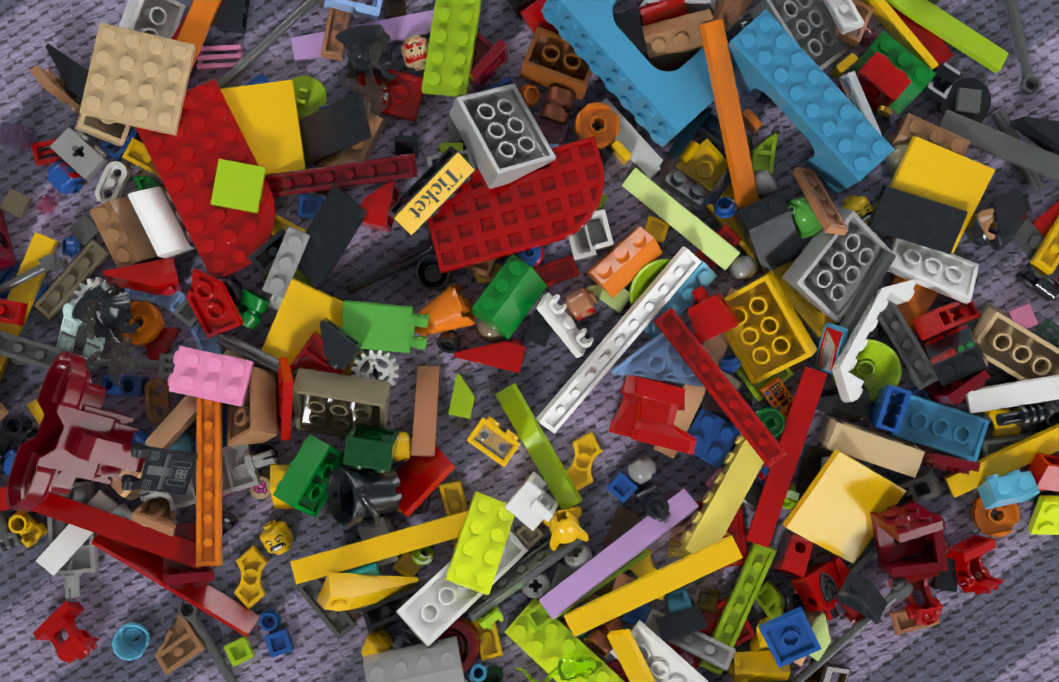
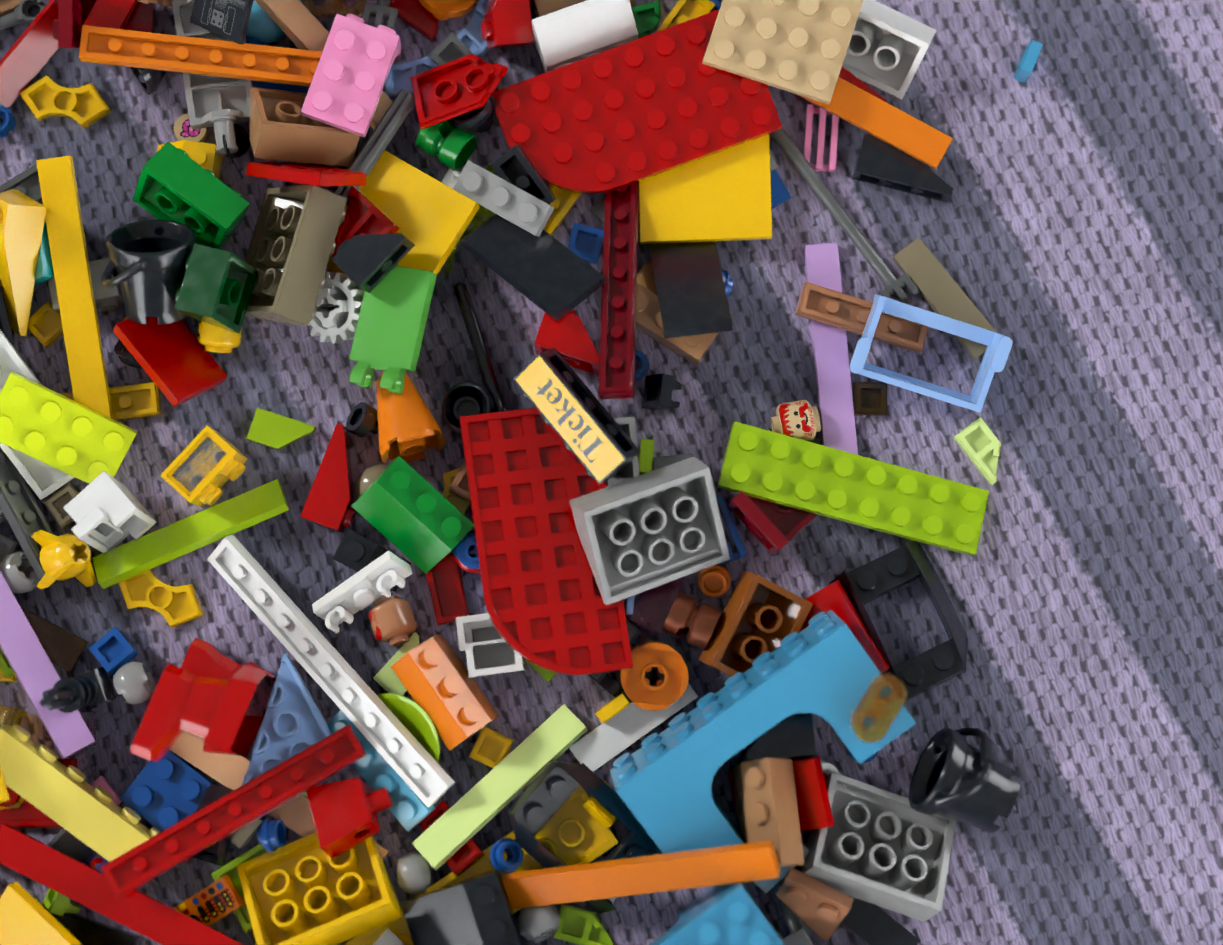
camera: 100 degrees right, 5 degrees down
(238, 186) = (620, 142): lime tile -> none
(276, 537) = (114, 143): yellow head -> none
(309, 95) = (750, 260): lime piece -> none
(368, 52) = (794, 349): helmet -> none
(404, 94) = (743, 375): red tile -> none
(422, 560) = (50, 343): lime plate -> none
(426, 411) = (265, 375): nougat tile -> none
(751, 121) = (637, 913): orange tile -> none
(772, 420) = (177, 883): green wheel -> none

